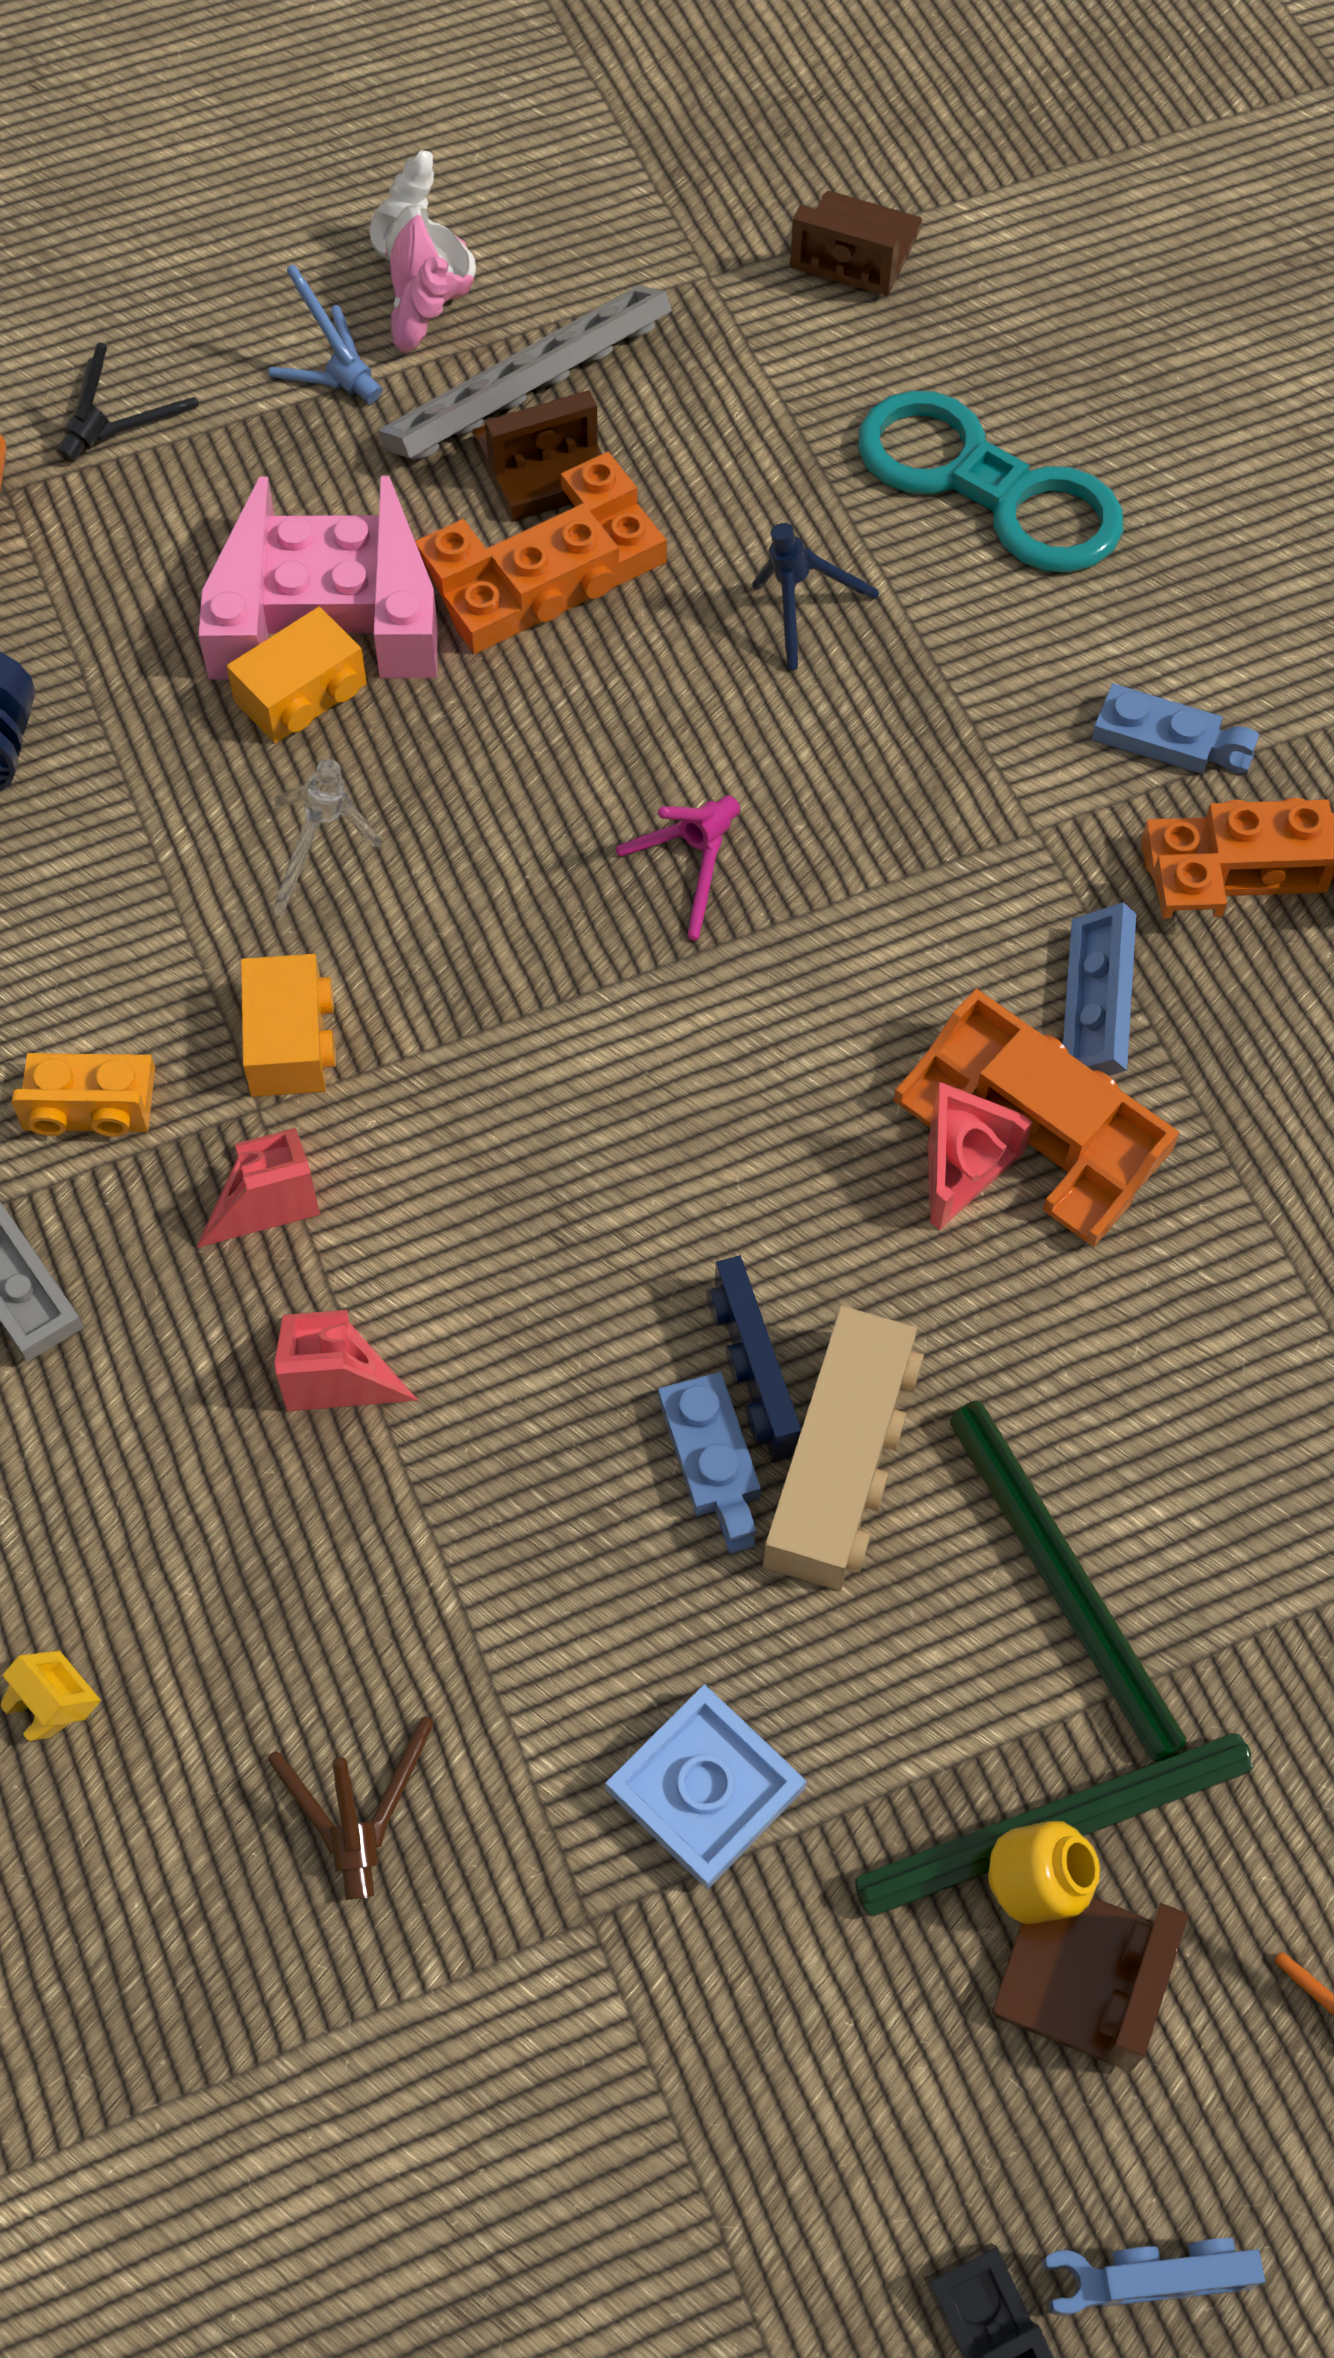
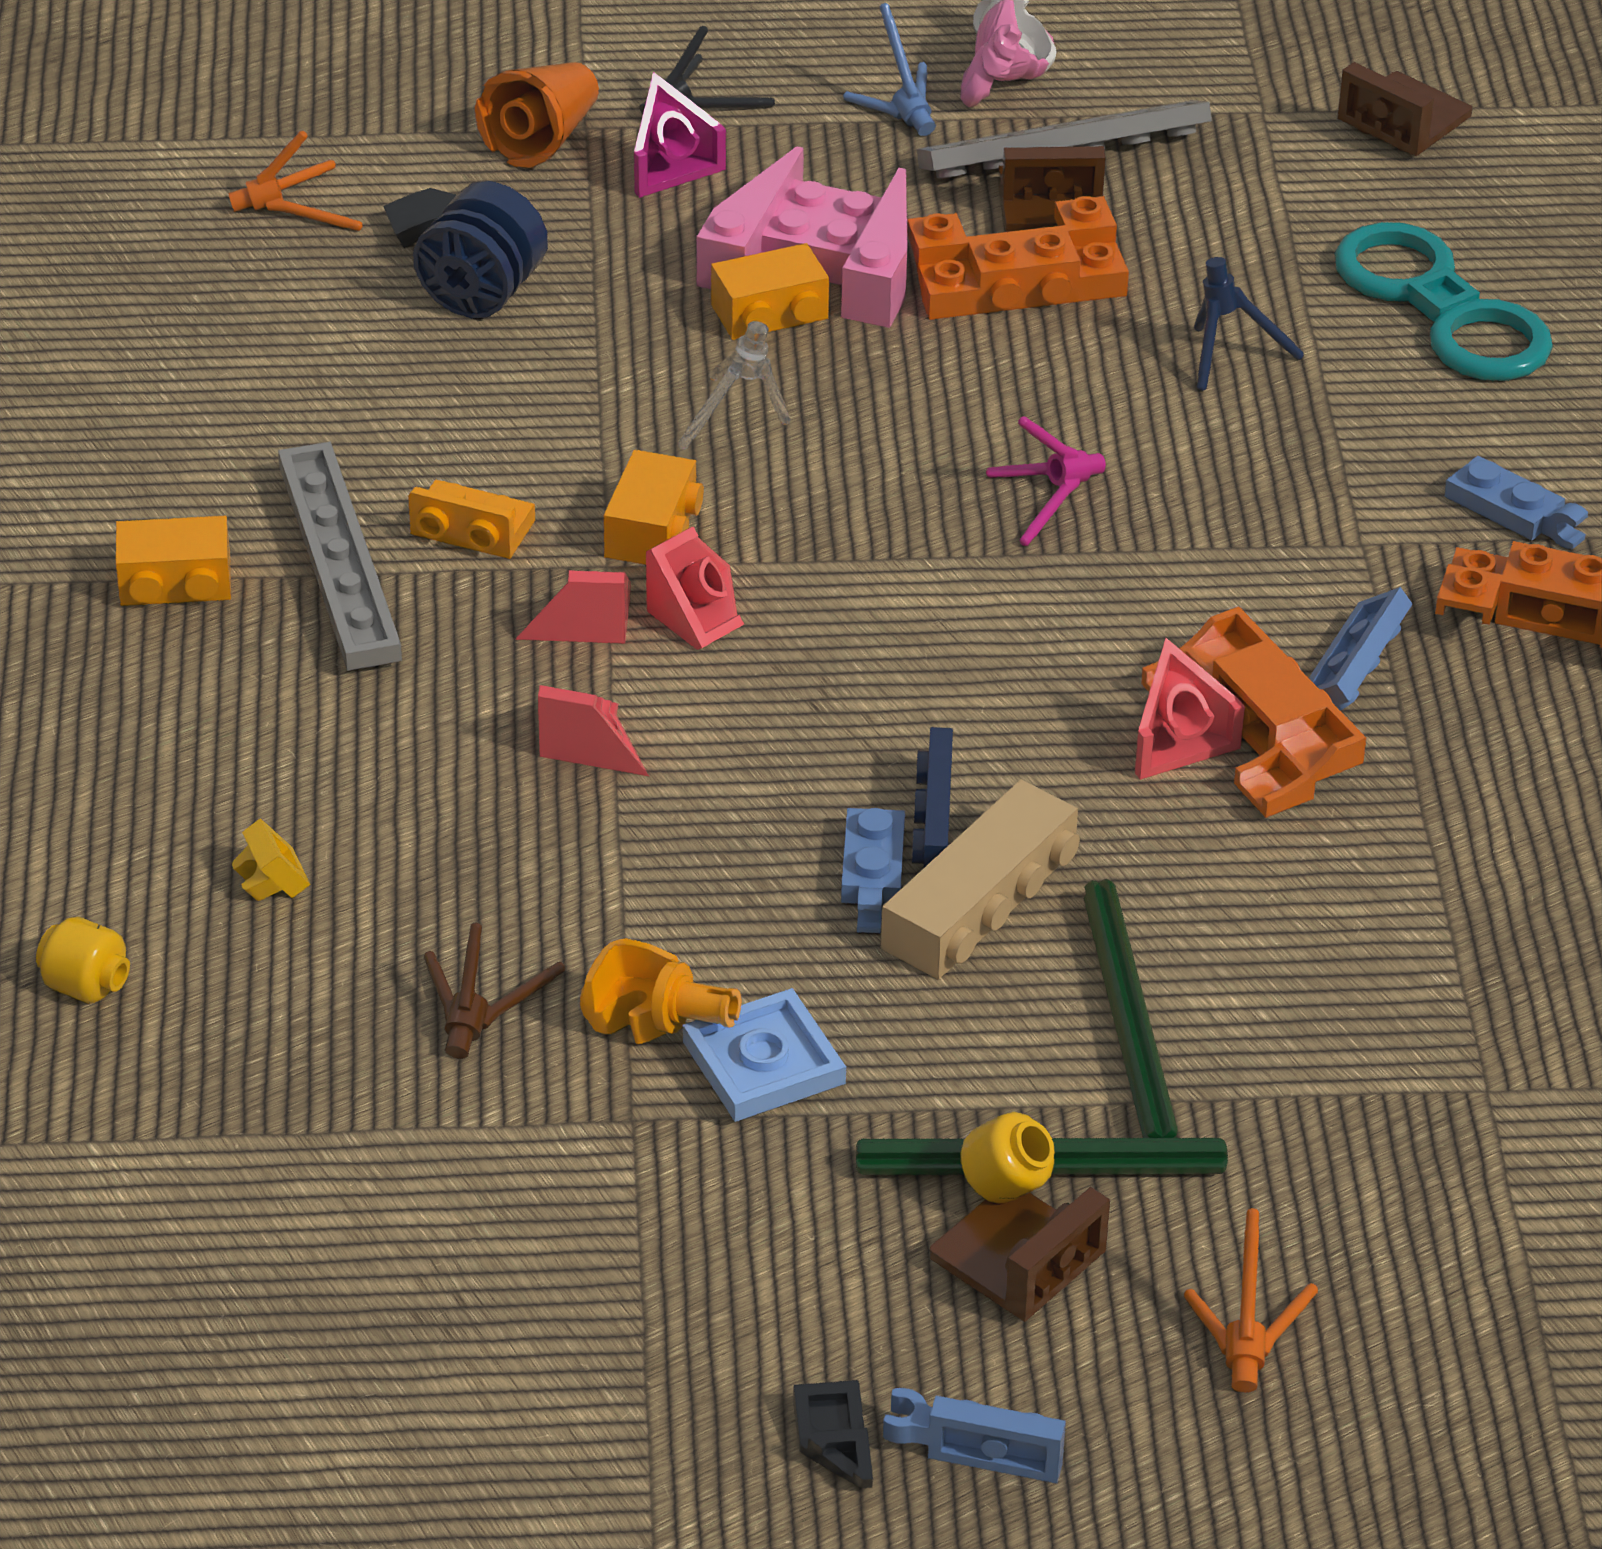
camera: 20 degrees right, 20 degrees down
(119, 497) = (675, 141): none -> dark pink slope
(376, 1131) = (691, 589): none -> coral slope
(534, 1736) = (650, 992): none -> light orange piece

